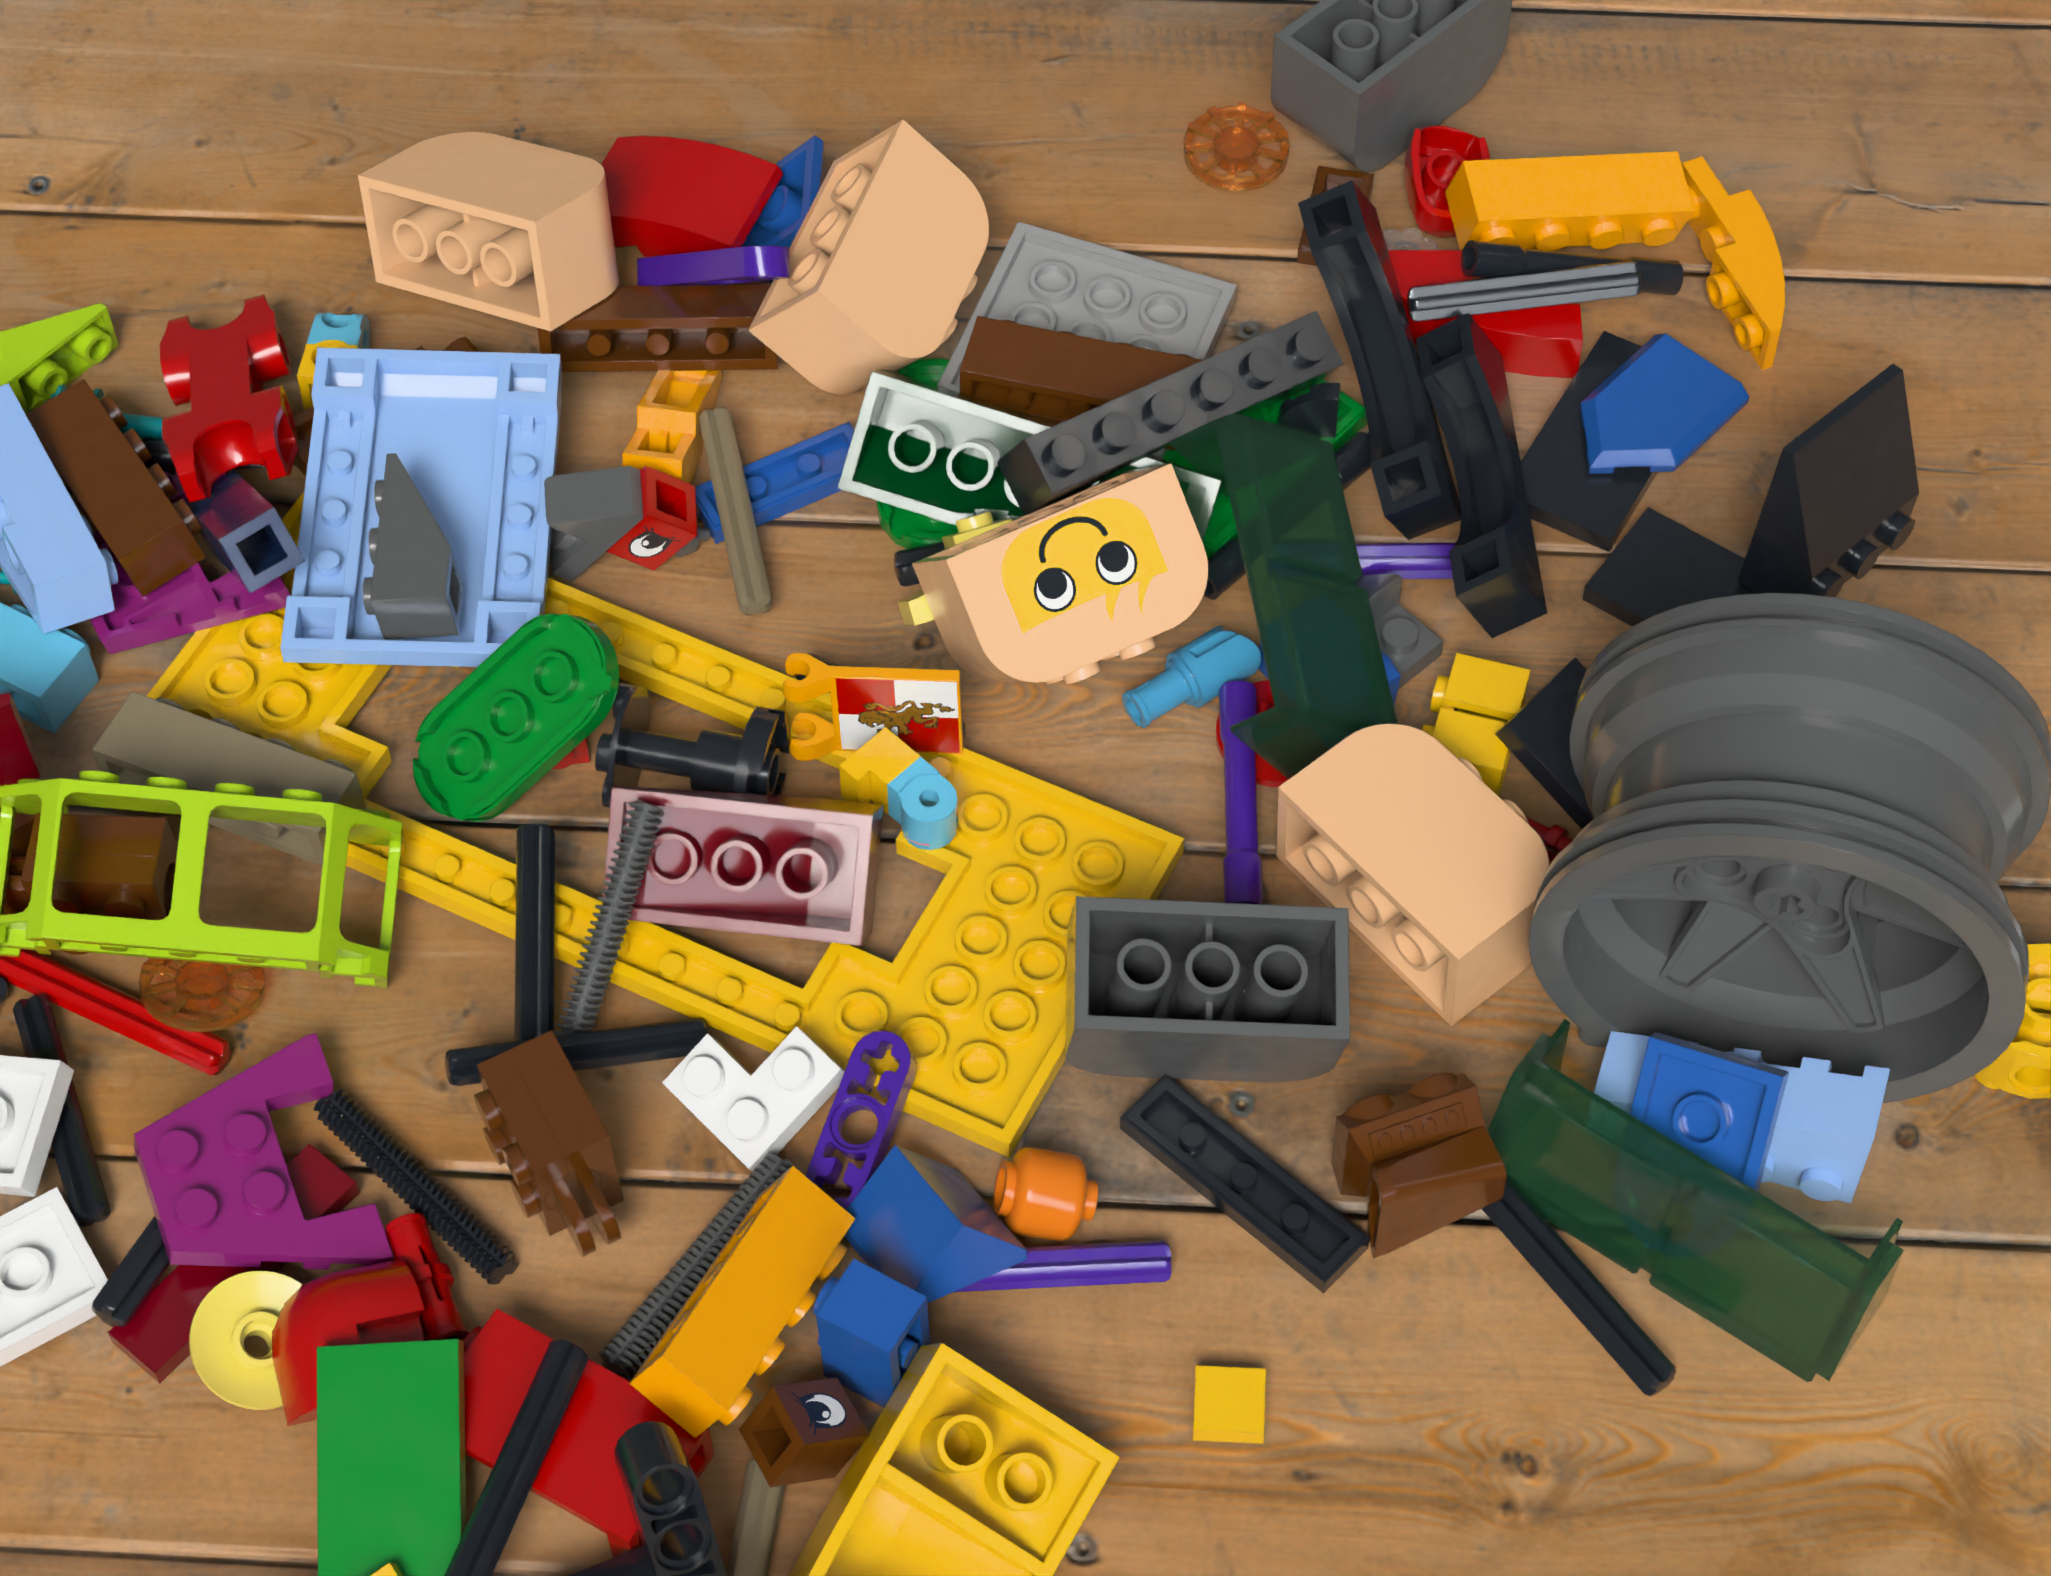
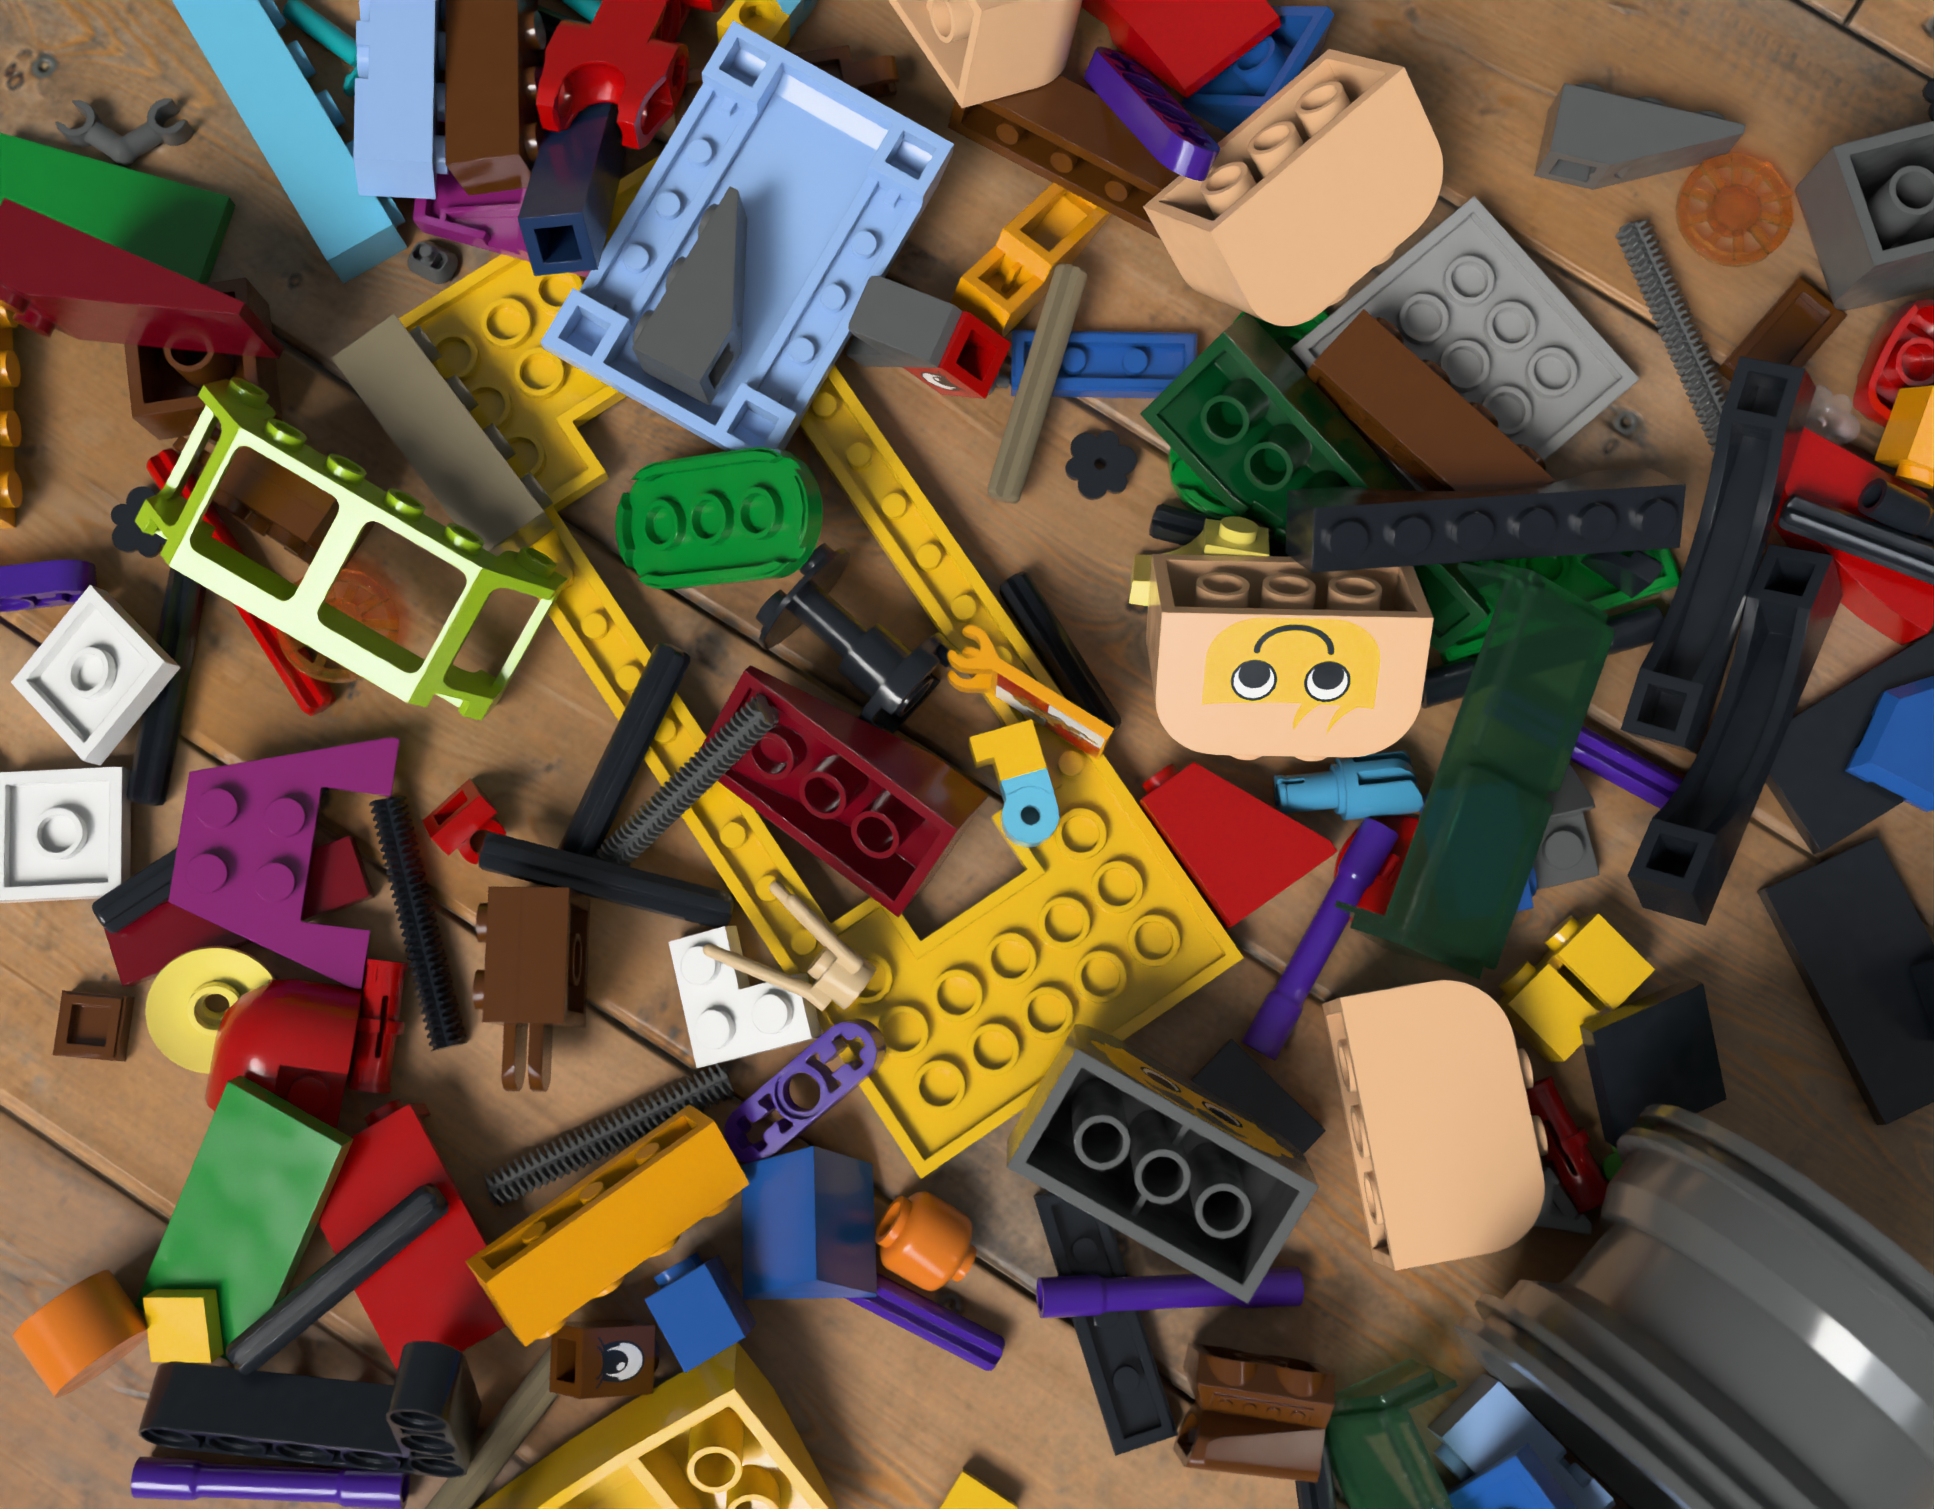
camera: 25 degrees right, 25 degrees up
(130, 675) = (432, 262): none -> dark grey rock
(142, 1429) = (93, 1026): none -> reddish brown tile
(409, 1077) = (459, 818): none -> red tile
(825, 552) = (1089, 450): none -> black plant
(831, 1002) = (837, 969): none -> tan plant
(1112, 138) = (1614, 139): none -> dark grey slope
(1118, 755) = (1228, 840): none -> red slope
(1224, 1149) = (1096, 1295): none -> dark purple piece
(1242, 245) = (1674, 324): none -> dark grey axle

